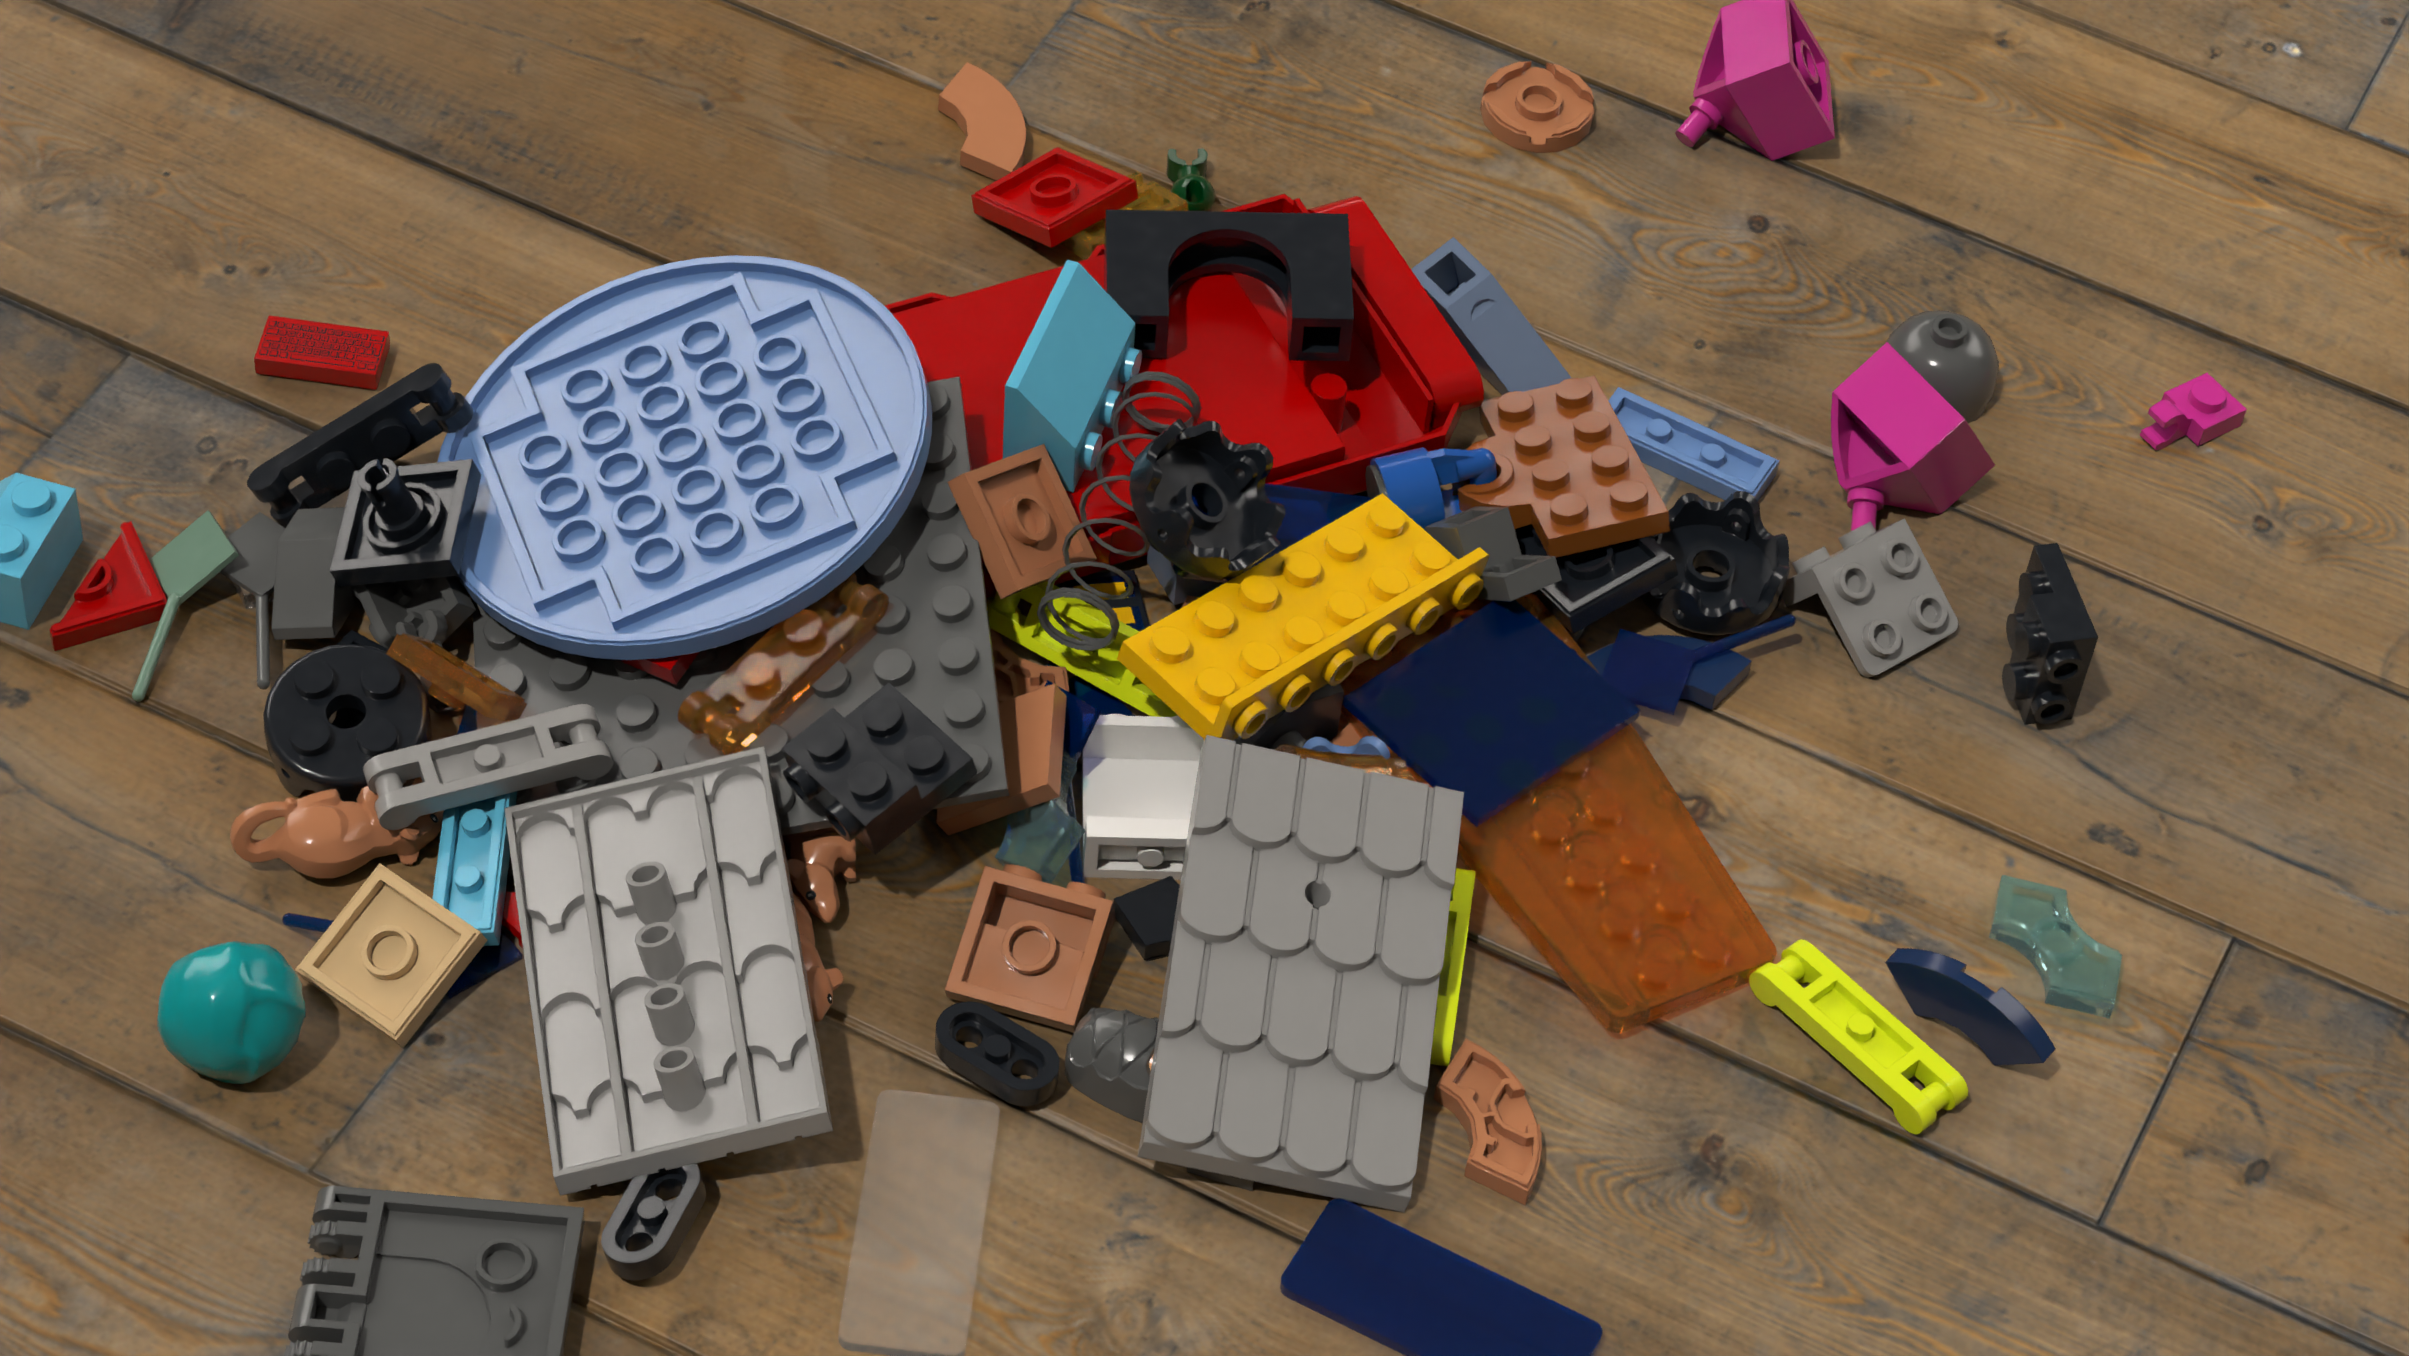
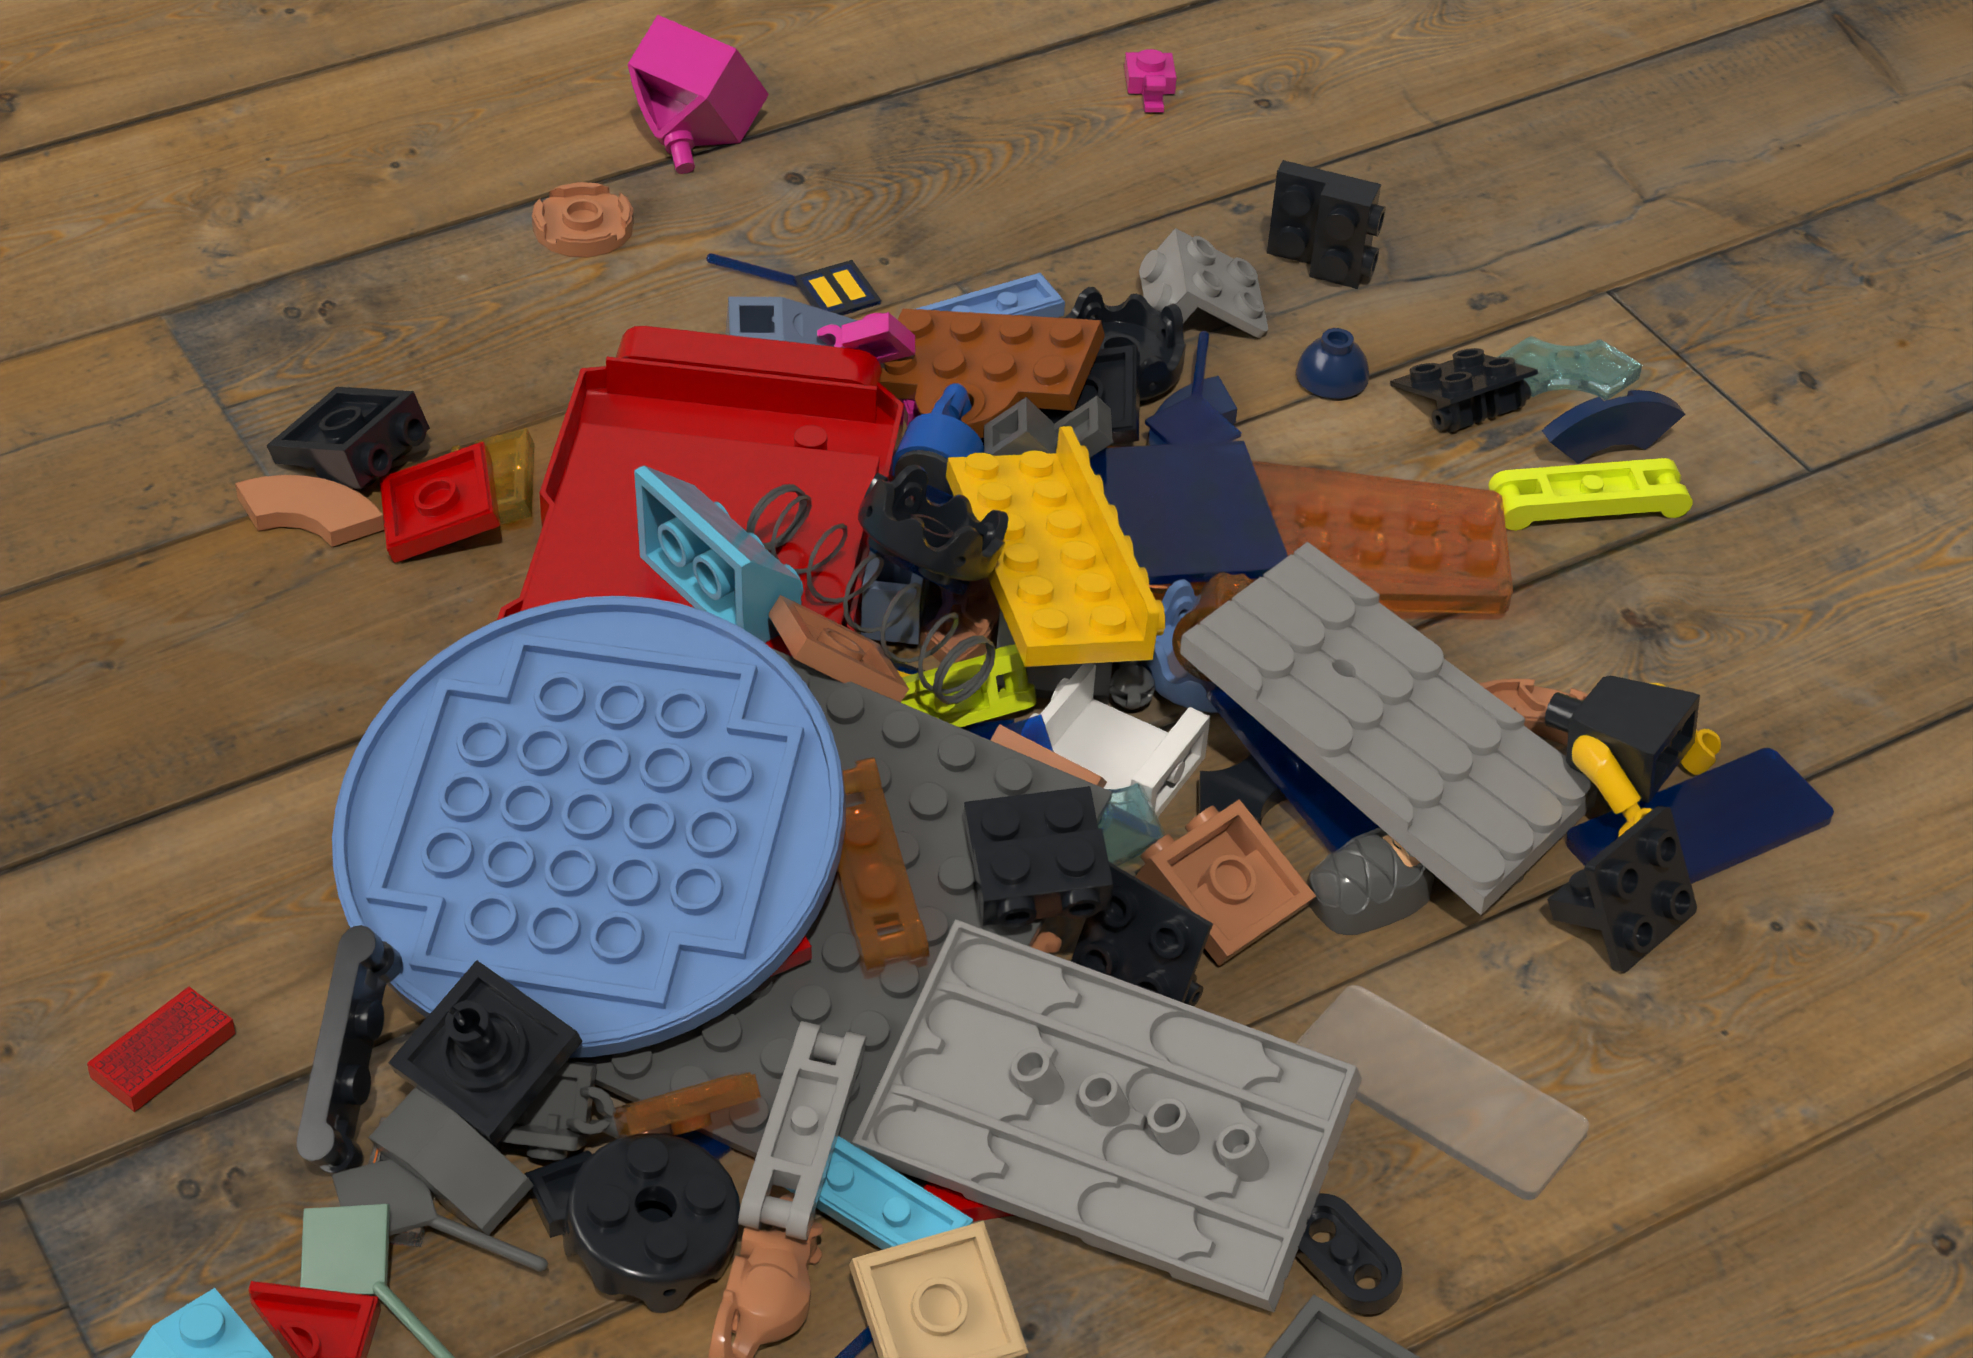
camera: 55 degrees left, 5 degrees down
(885, 923) = (1145, 940): none -> black hinge
(1001, 1053) = (1302, 957): black plate -> none
(1085, 101) = (353, 435): none -> black plate
(1191, 180) = (478, 423): dark green arm -> none
(1264, 1266) = (1631, 890): none -> black bracket
(1293, 253) = (686, 376): black arch -> none
(1463, 1180) = (1632, 739): none -> black torso
(1501, 366) = (876, 333): none -> dark pink plate
(1611, 323) = (832, 288): none -> piece
(1860, 749) = (1333, 366): none -> dark blue brick
(1900, 441) = (1095, 196): dark pink piece -> none
(1922, 851) = (1469, 387): none -> black hinge
(1952, 357) = (1019, 159): dark grey cylinder -> none

